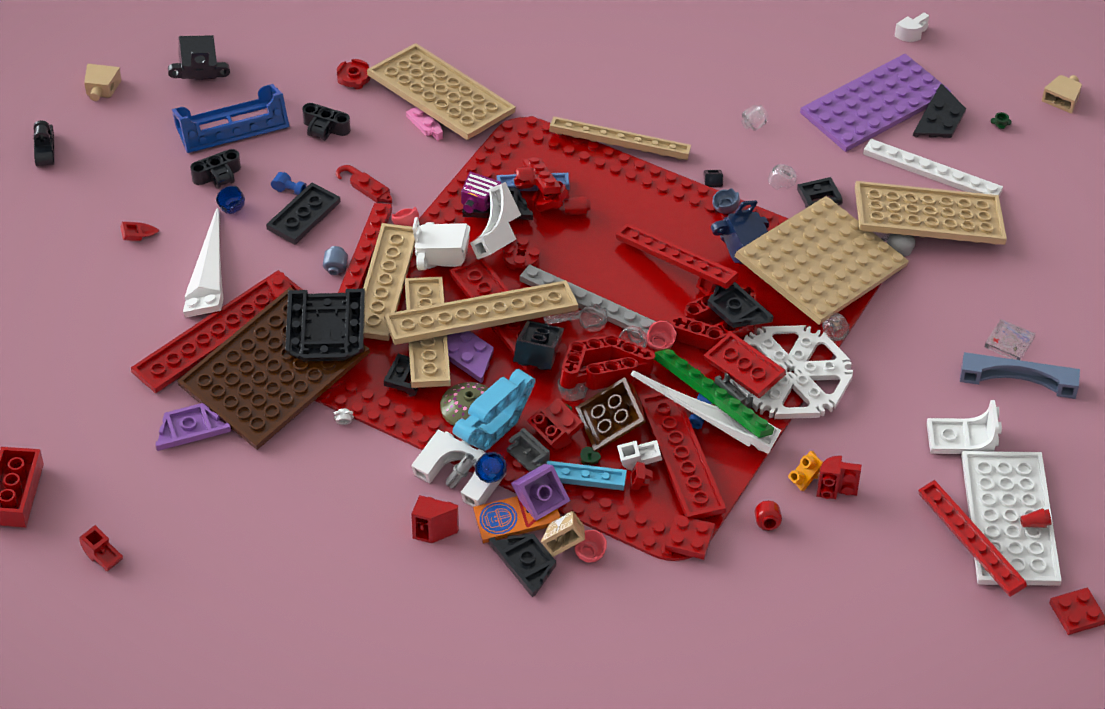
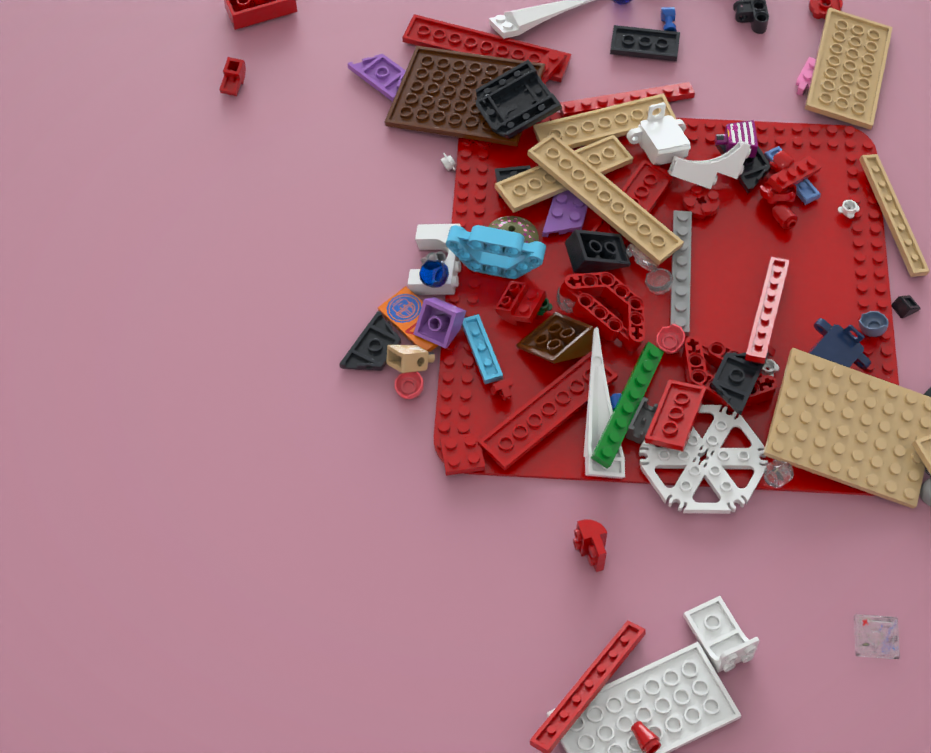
camera: 65 degrees right, 10 degrees up
(335, 260) = (607, 84): sand blue head -> none
(366, 184) = (708, 68): red plate -> none
(405, 217) = (685, 108): coral hair -> none
(434, 519) = (371, 262): red slope -> none
(528, 450) = (483, 298): dark grey hinge -> none
(589, 457) = (507, 344): dark green piece -> none
(595, 162) = (849, 208): none -> white plate
(631, 453) = (524, 377): white brick -> none
(634, 335) = (654, 320): clear hair -> none
(768, 515) = (522, 506): red head -> none
(806, 471) = (589, 511): light orange hips -> none
(1060, 379) = (815, 617): sand blue arch -> none

